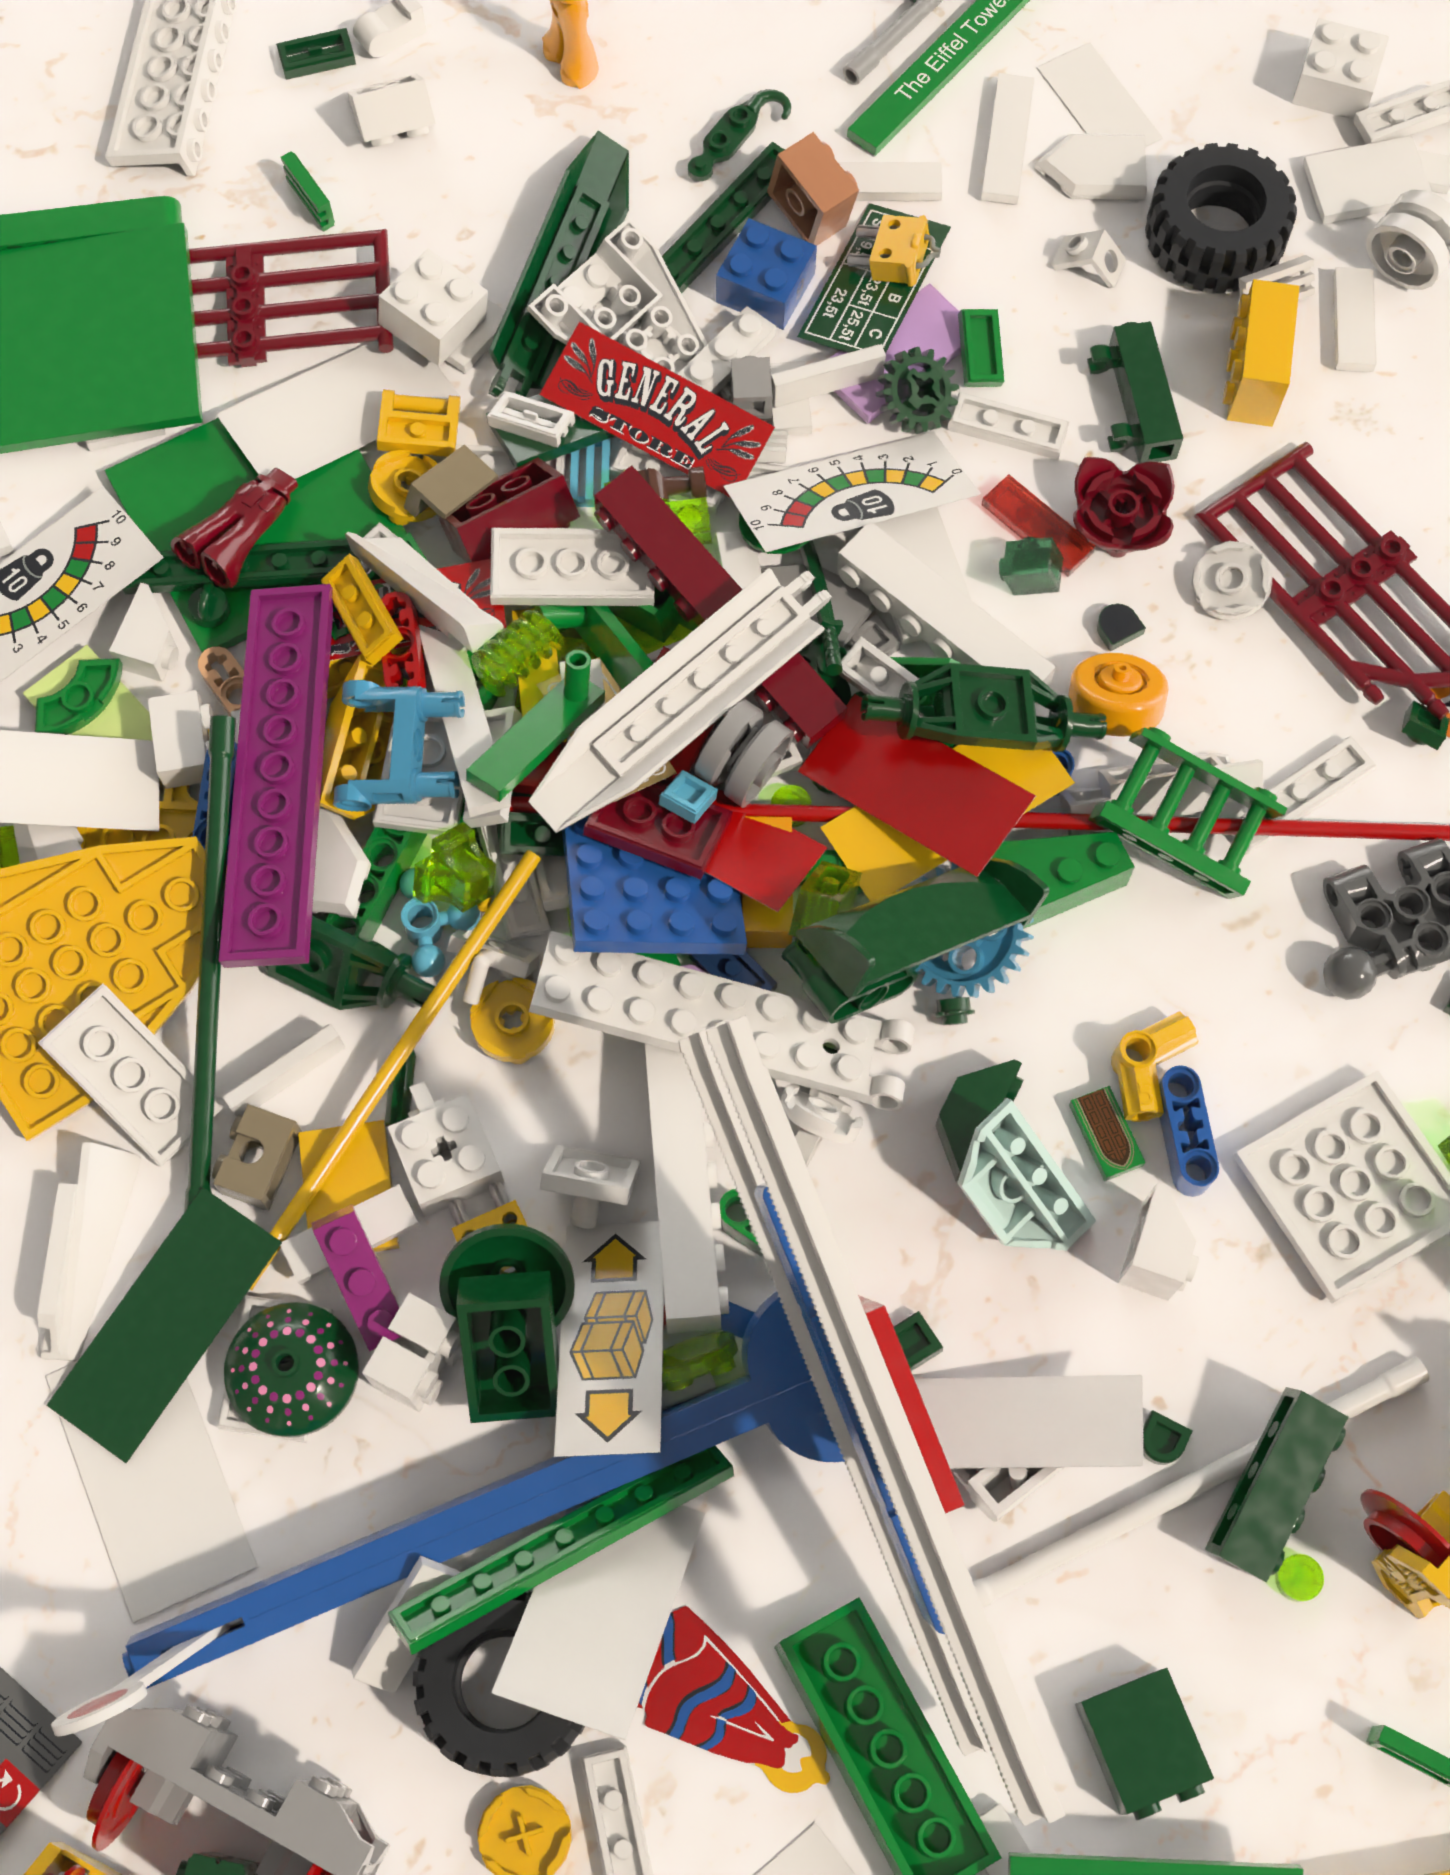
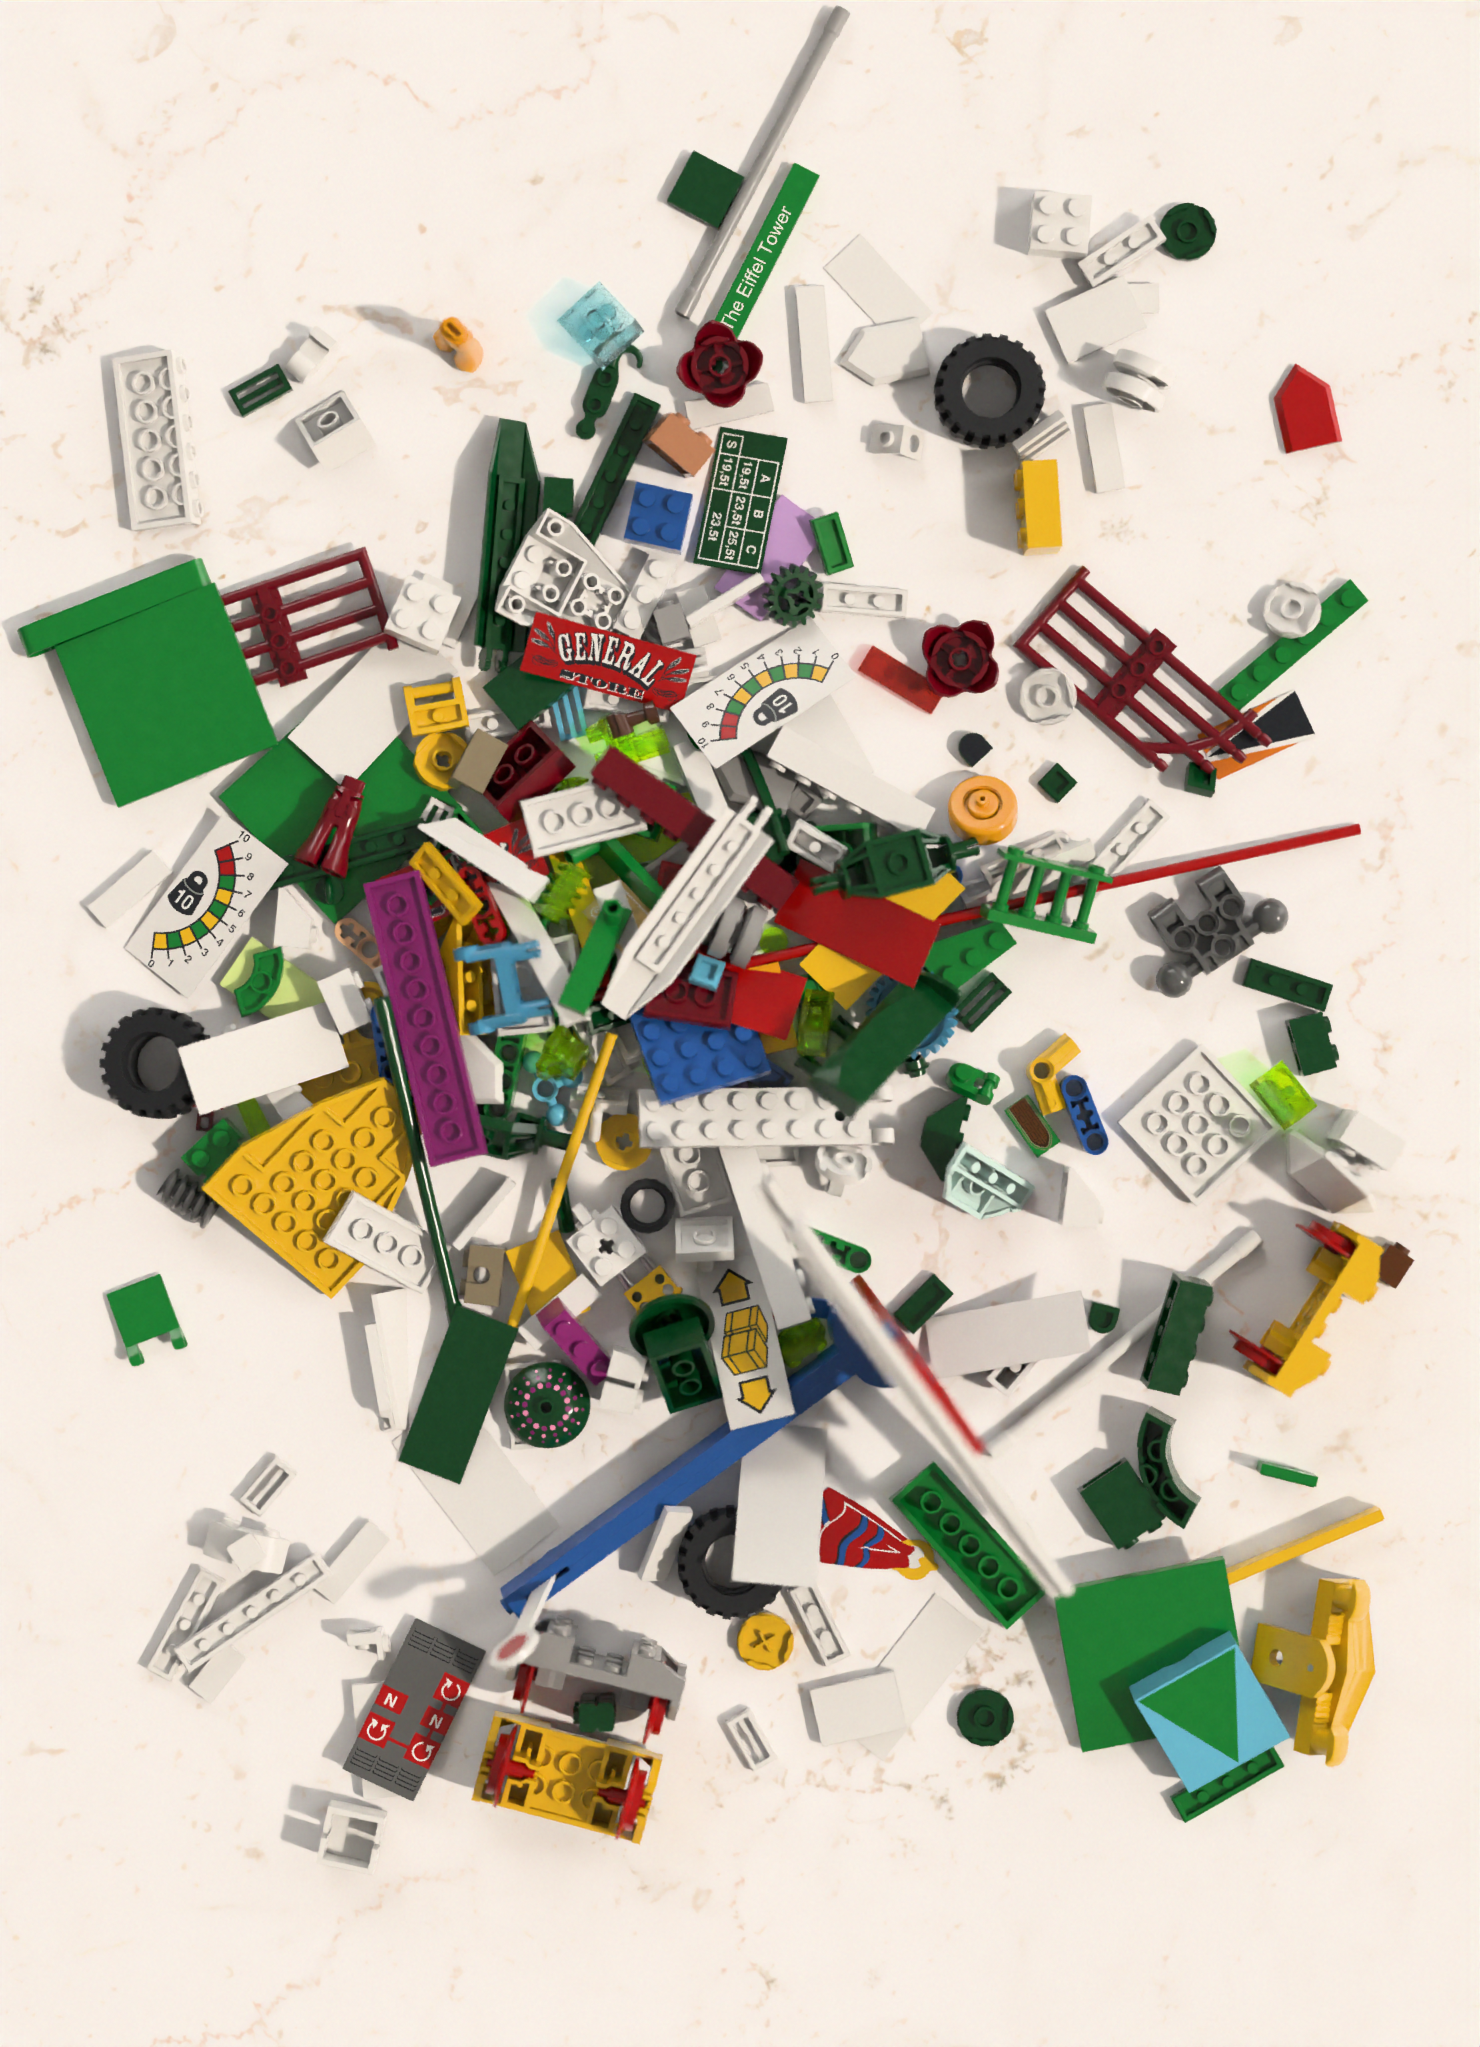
camera: 10 degrees left, 20 degrees up
(308, 191) = (294, 523): green tile -> none
(506, 1086) = (629, 1218): none -> black tyre
(527, 422) = (515, 699): white tile -> none
(555, 1548) = (742, 1482): green tile -> none
(602, 1088) = (696, 1178): none -> white tile
(651, 217) = (559, 495): none -> dark green brick
(749, 54) = (600, 325): none -> clear light blue brick
(885, 117) = (718, 343): none -> dark red brick
(897, 249) = (756, 475): yellow piece -> none
(1031, 566) = (903, 720): clear green brick -> none
(1037, 1054) = (961, 1080): none -> green plate
(1093, 930) = (998, 985): none -> dark green tile
(1144, 393) = (958, 553): dark green brick -> none
(1213, 1700) = (1158, 1470): none -> dark green brick
(1224, 692) = (1057, 782): none -> dark green tile
(1299, 1578) = (1201, 1383): clear neon green tile -> none

